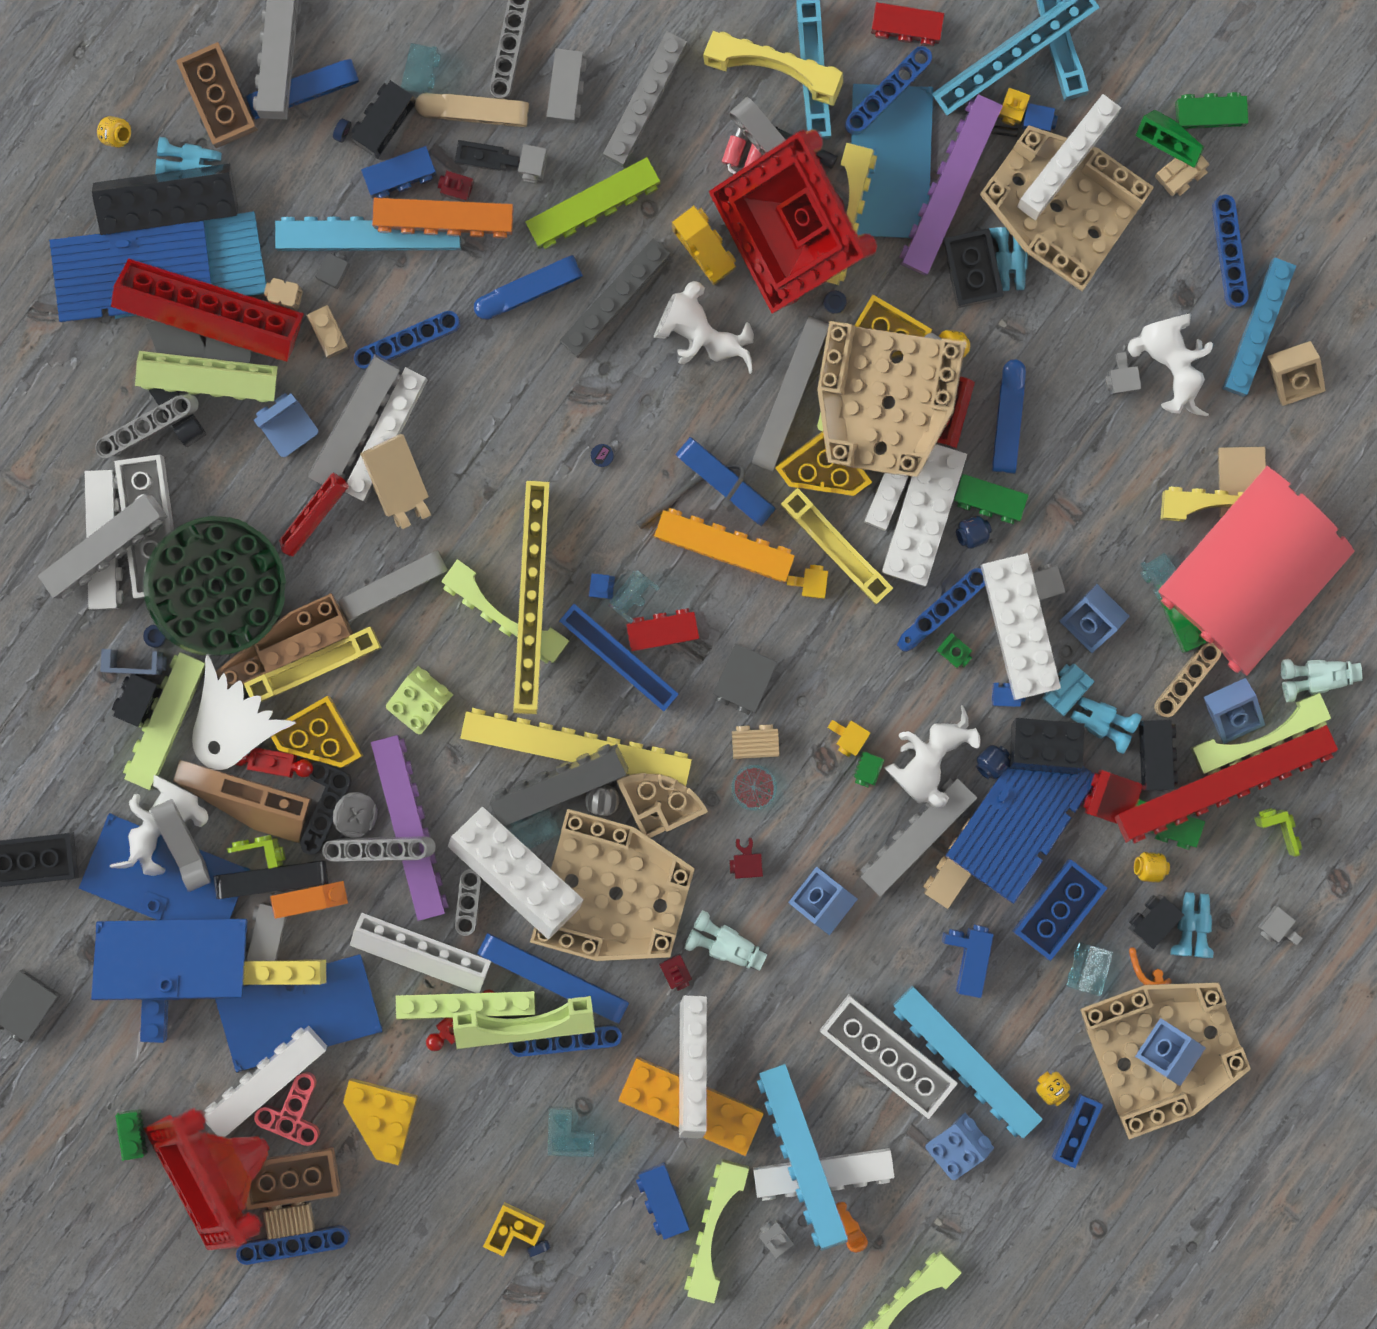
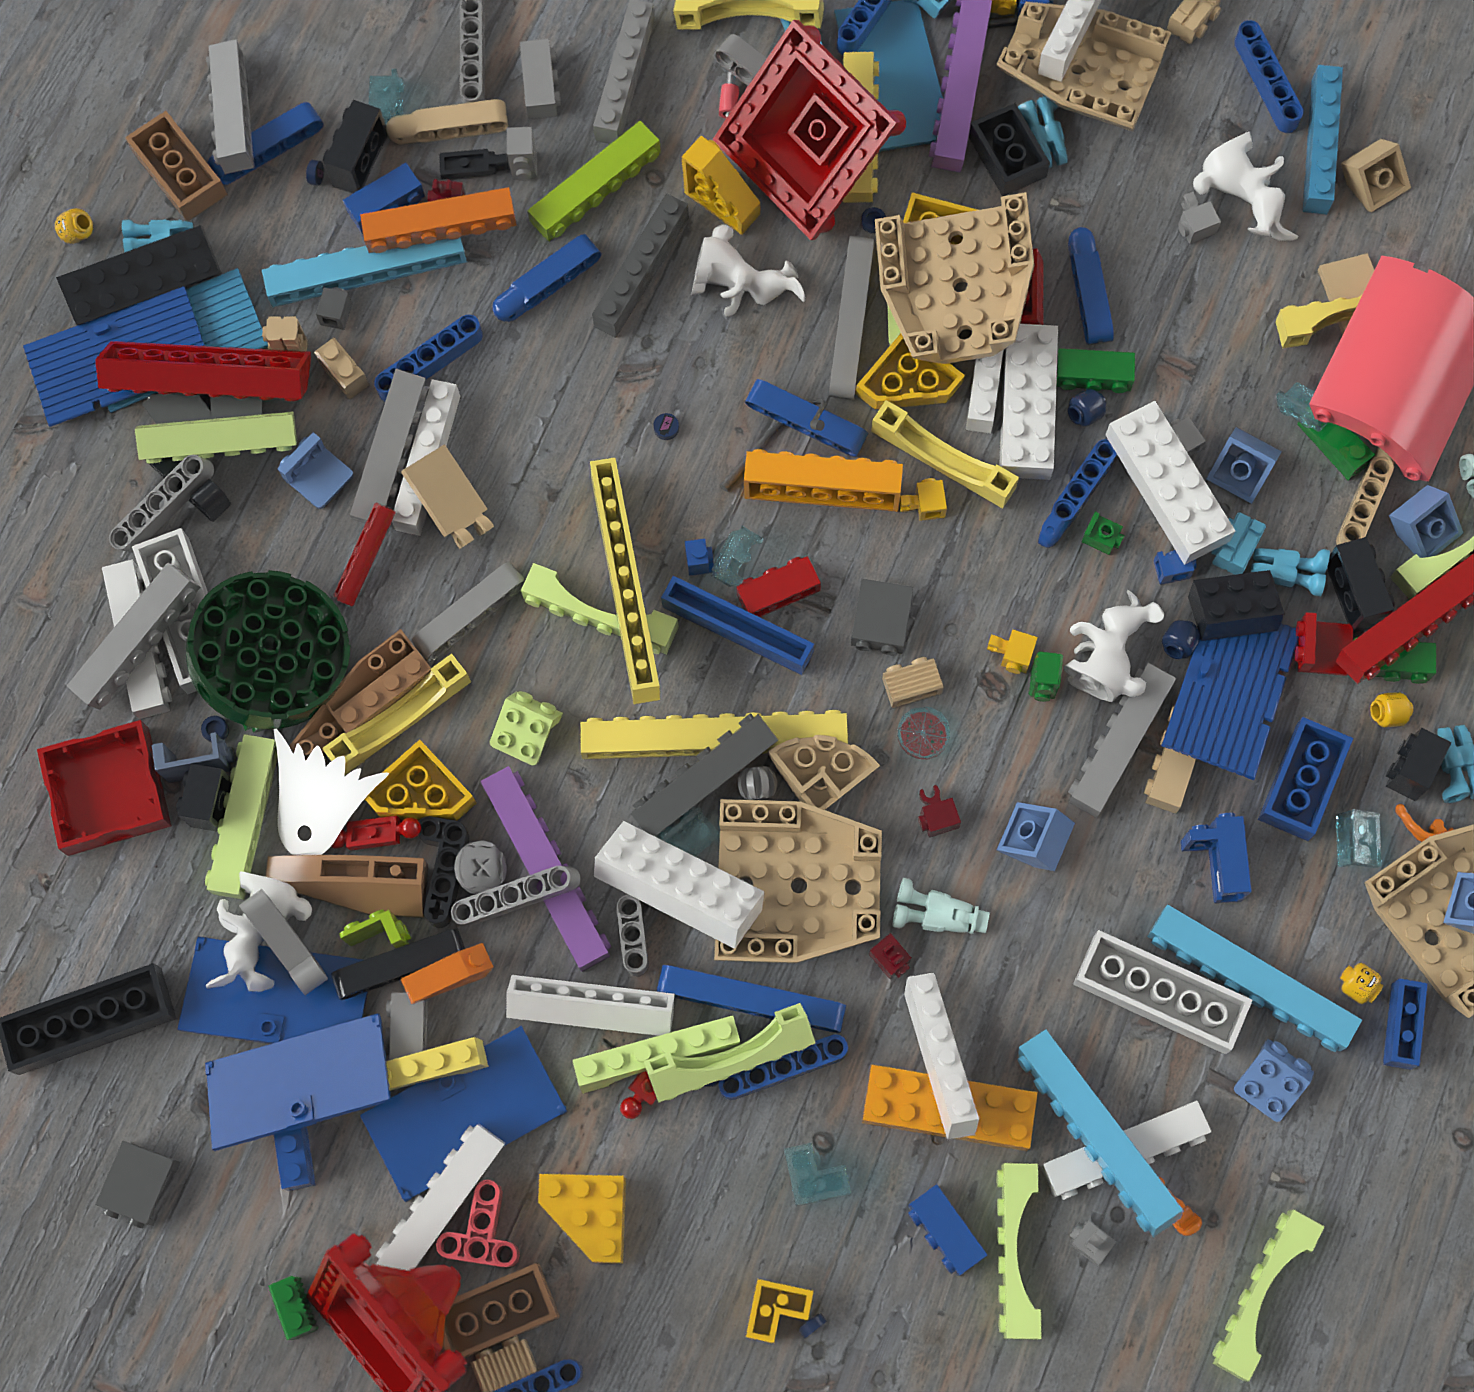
camera: 10 degrees left, 15 degrees down
(53, 667) = (103, 788): none -> red tile

